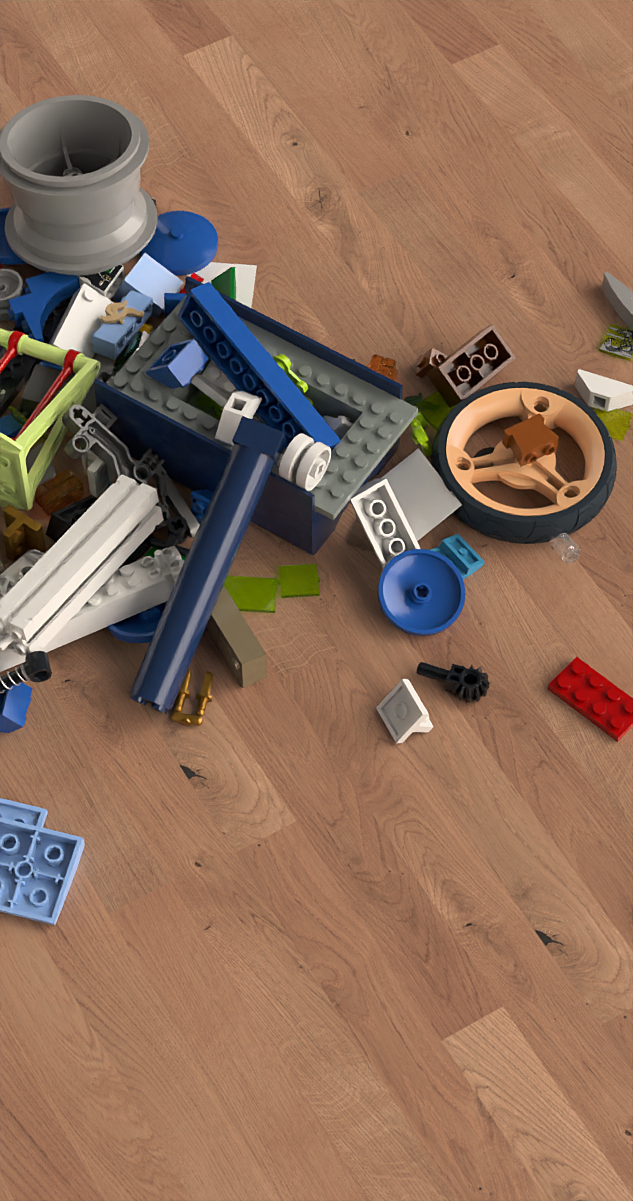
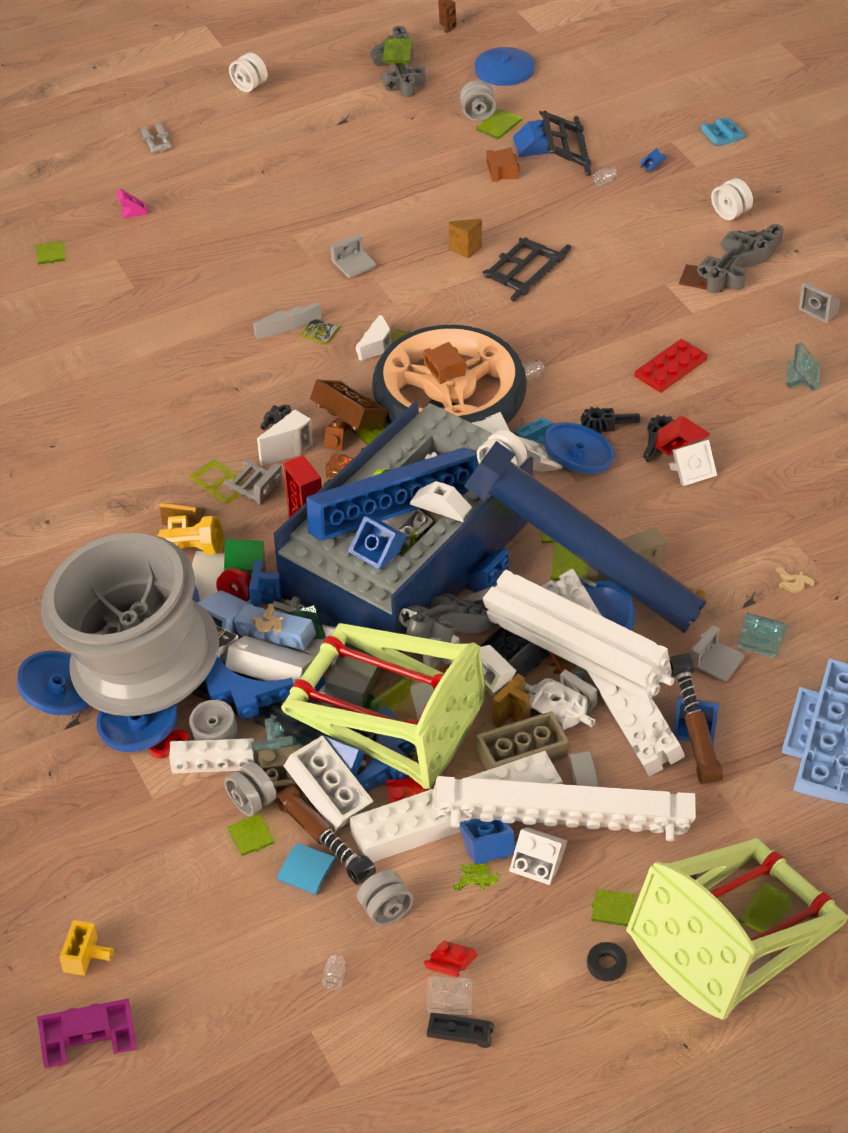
camera: 85 degrees left, 10 degrees down
(43, 497) = (496, 670): none -> white slope
(95, 728) = (714, 656): none -> light grey bracket
(132, 779) = (762, 635): none -> clear light blue bracket
(225, 826) = (798, 585): none -> tan piece
(261, 254) = (205, 535): none -> yellow piece
(304, 313) = (300, 482): none -> red brick
(305, 244) = (171, 509): none -> pearl gold slope
(349, 266) = (229, 474): none -> clear neon green window
(351, 305) = (262, 487): none -> light grey plate
(415, 316) = (285, 439): none -> white slope
(433, 690) = (679, 434): none -> red slope
(460, 311) = (275, 415): none -> black piece
(481, 625) = (604, 419): none -> black gear
(594, 843) = (803, 368): none -> clear light blue bracket

